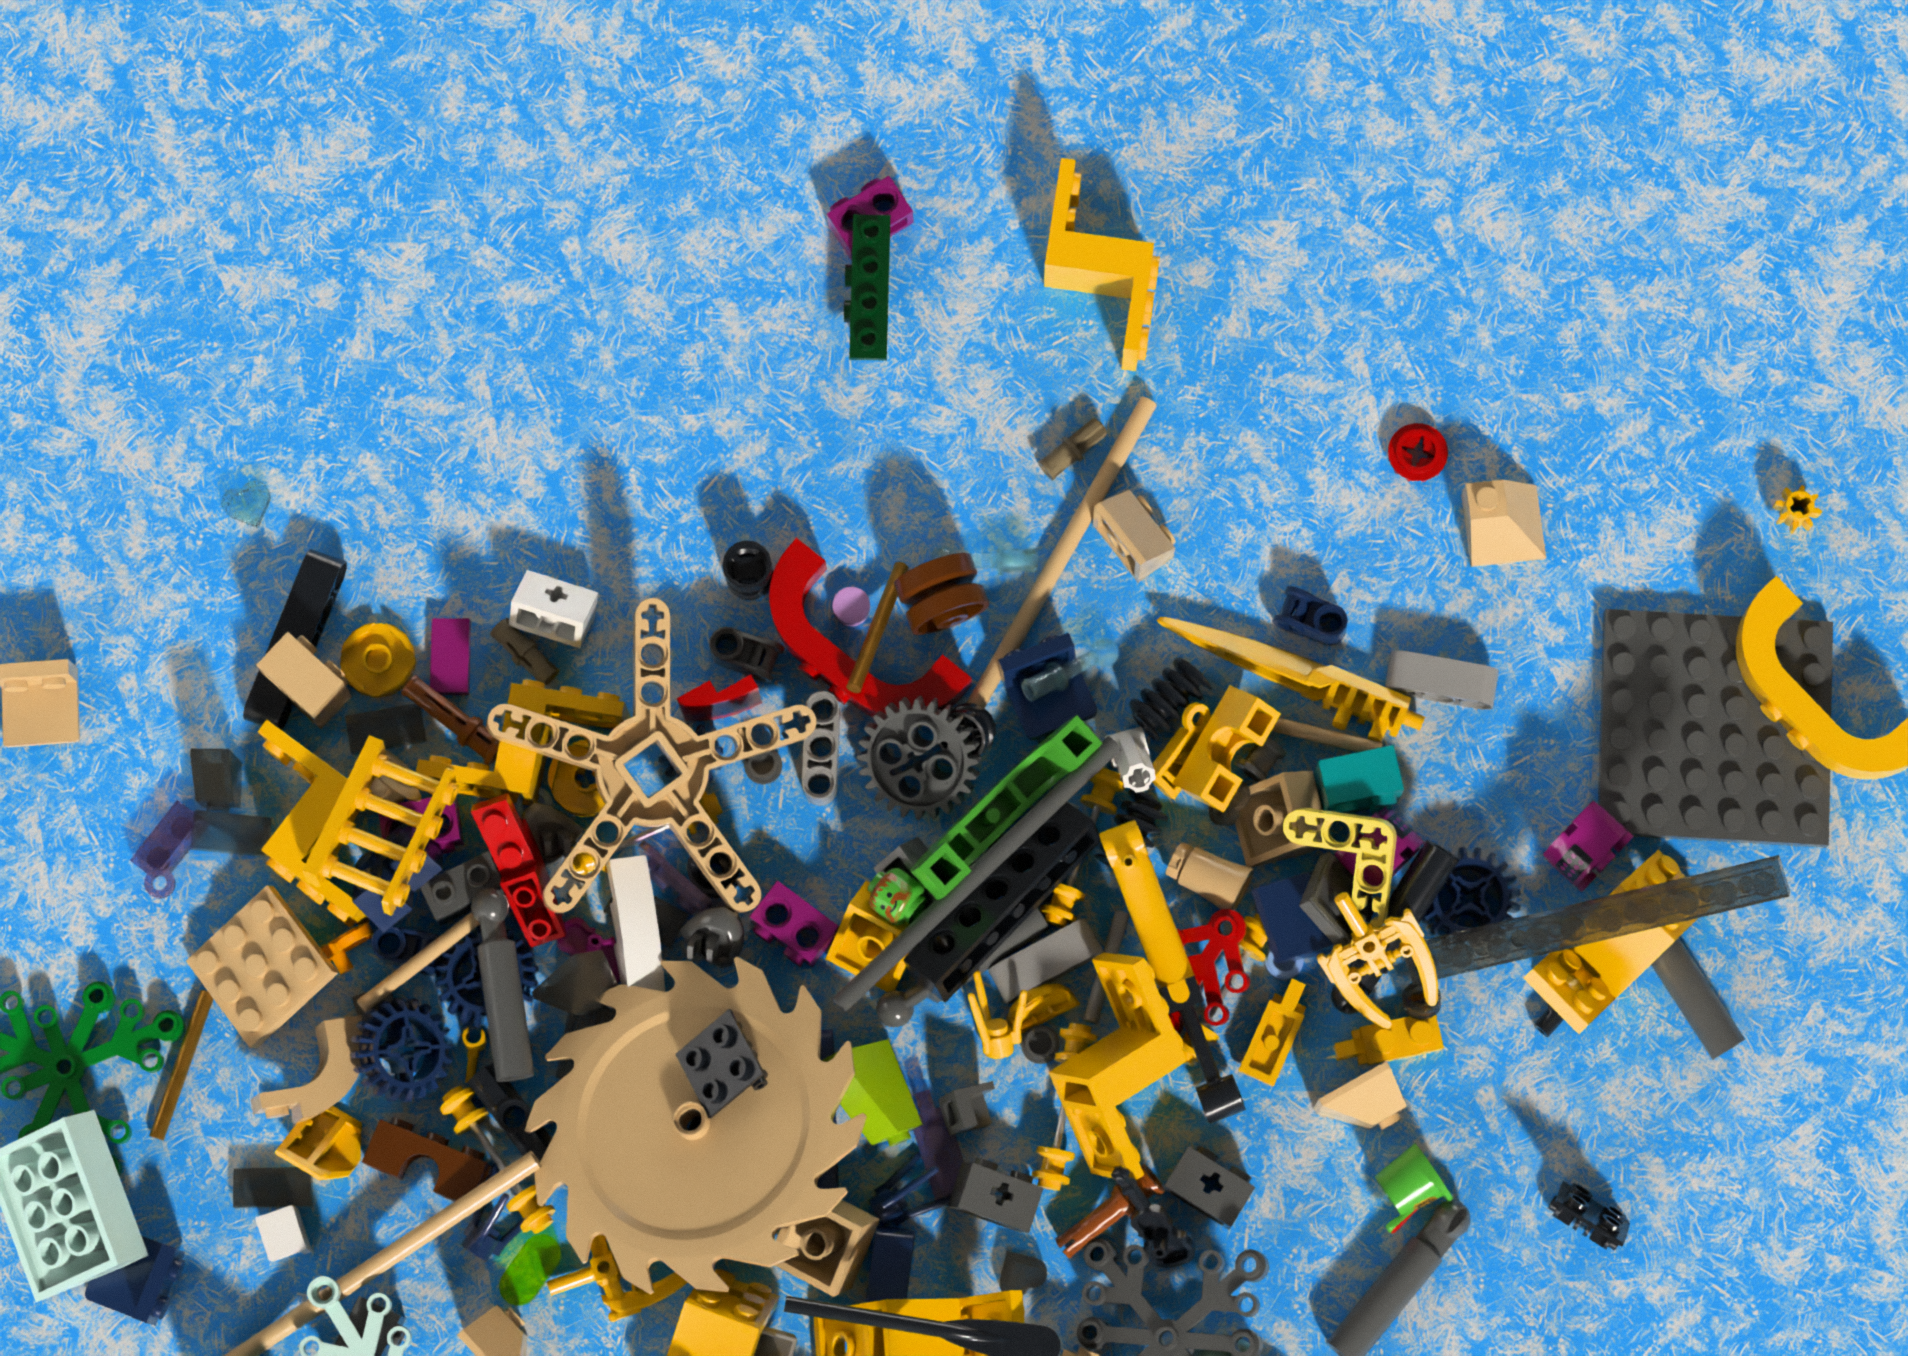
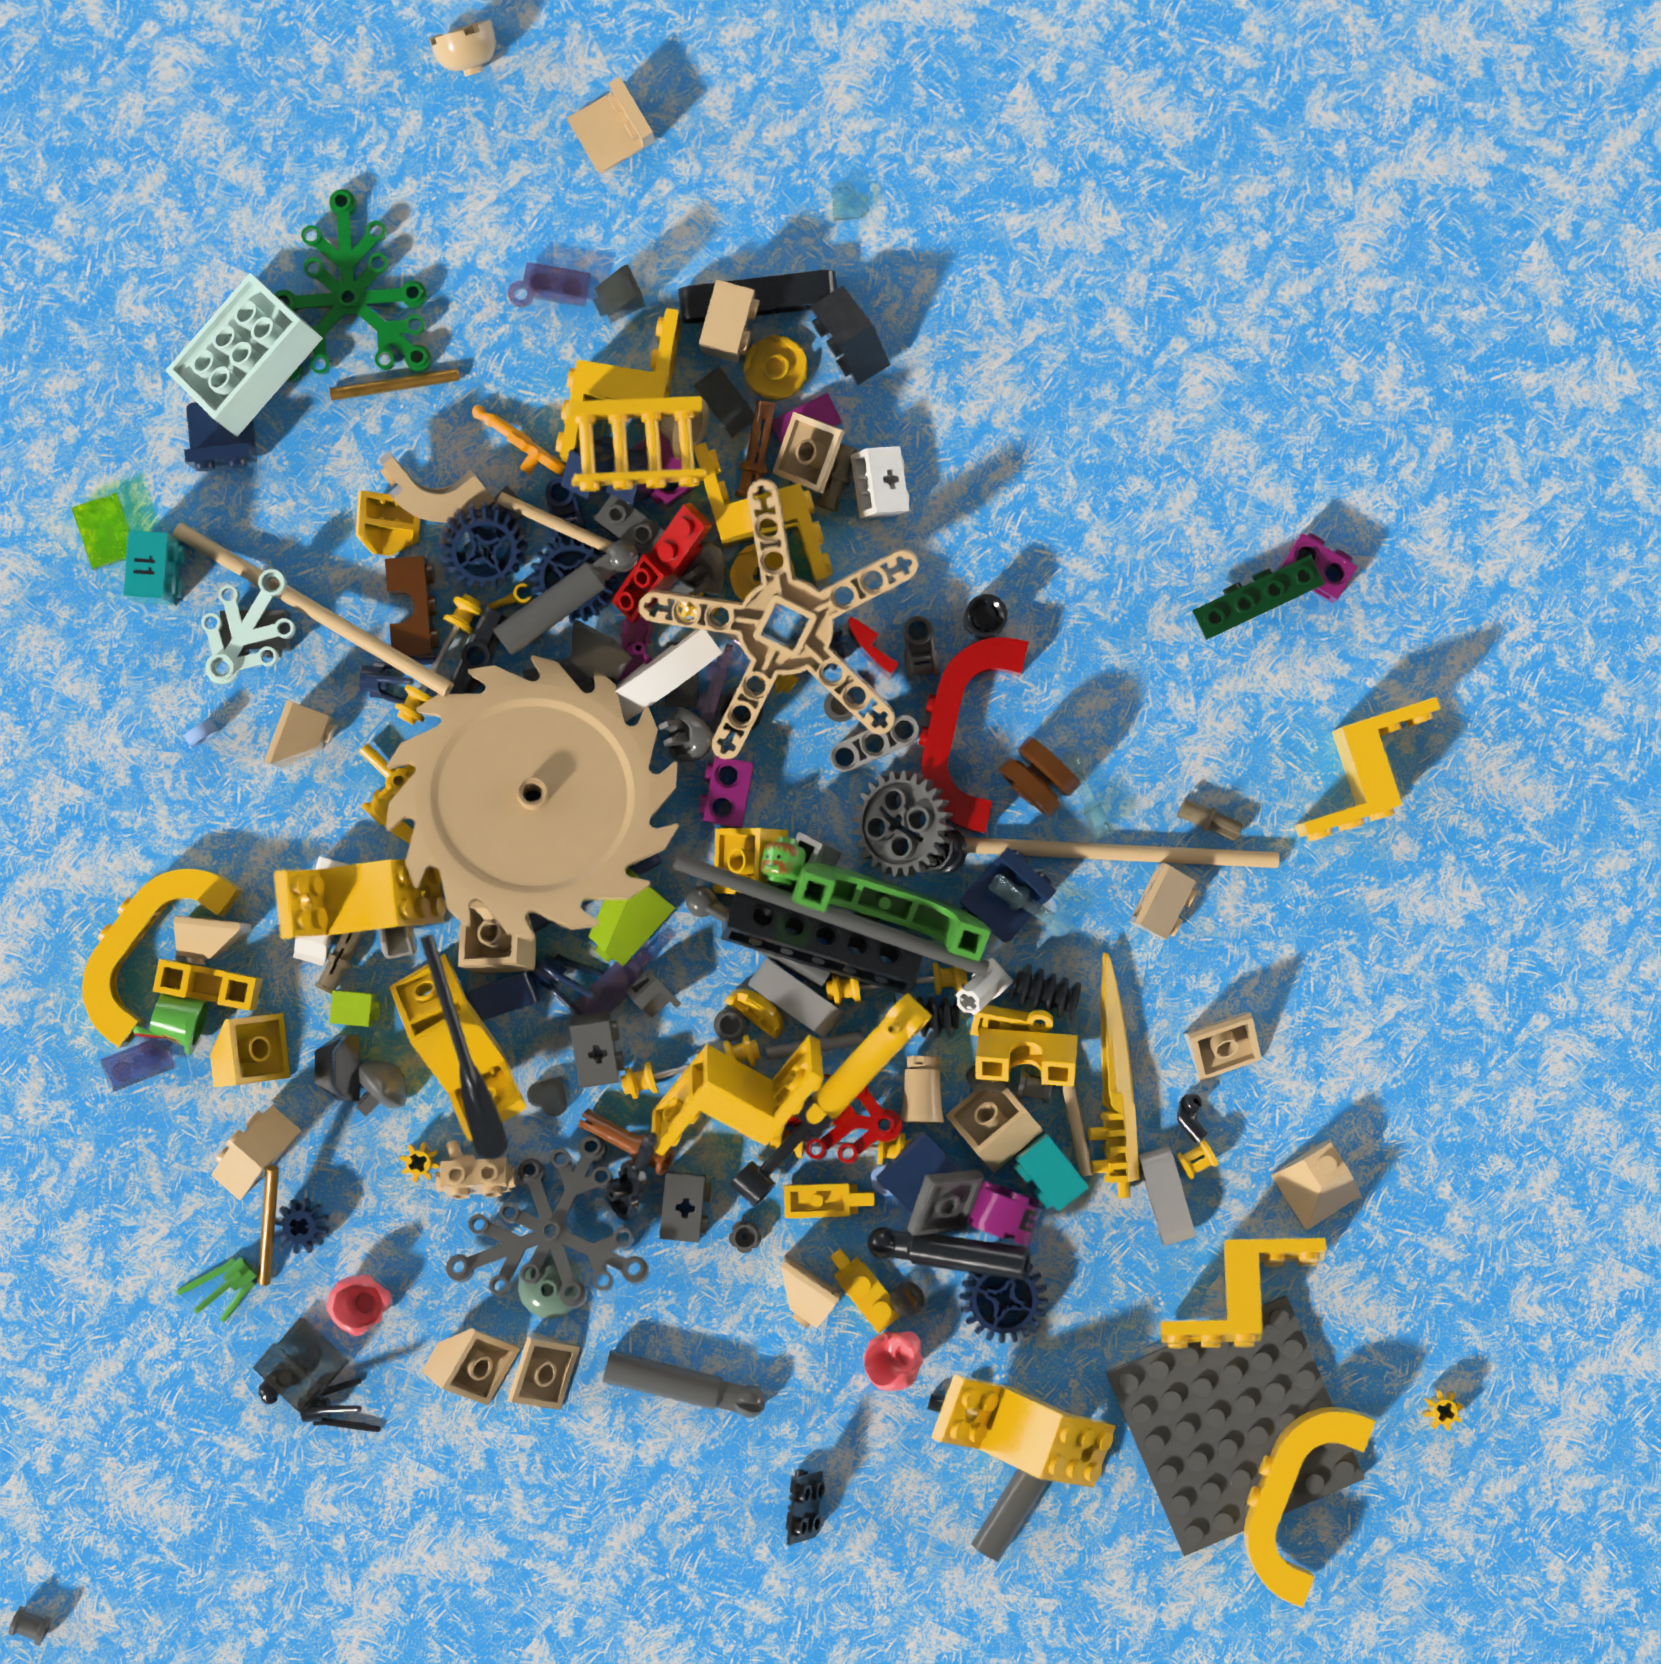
camera: 60 degrees right, 10 degrees up
(230, 833) = (585, 327): clear smoke tile -> none
(262, 966) = (494, 405): tan plate -> none
(272, 1188) = (335, 500): clear smoke tile -> none
(283, 1233) = (304, 528): white panel -> none
(386, 562) = (849, 336): none -> black brick
(483, 664) = (808, 452): none -> tan slope
(530, 1270) = (371, 726): clear neon green tile -> none
(721, 1064) = (584, 795): black hinge -> none
(851, 606) = (998, 710): lavender tile -> none
(875, 630) = (988, 740): pearl gold bar -> none
(995, 1034) = (719, 988): yellow plant -> none
(1270, 1128) = (753, 1240): none -> dark grey plate
(1308, 616) = (1166, 1068): dark blue piece -> none
(1313, 546) = (1223, 1045): none -> tan slope
(1366, 852) = (993, 1207): light yellow beam -> none
(1368, 619) = (1188, 1114): none -> black arm
(1370, 945) = (922, 1245): yellow bar -> none
(1410, 1185) = (759, 1358): bright green hat -> none
(1413, 618) = (1201, 1150): none -> yellow bush
(1433, 446) = (1352, 1100): red gear -> none
(1479, 1043) = (893, 1360): none -> coral hair
(1578, 645) = (1243, 1291): none -> yellow bracket
(1587, 845) = (1088, 1371): magenta brick -> none
(1606, 917) = (1028, 1411): clear smoke plate -> none

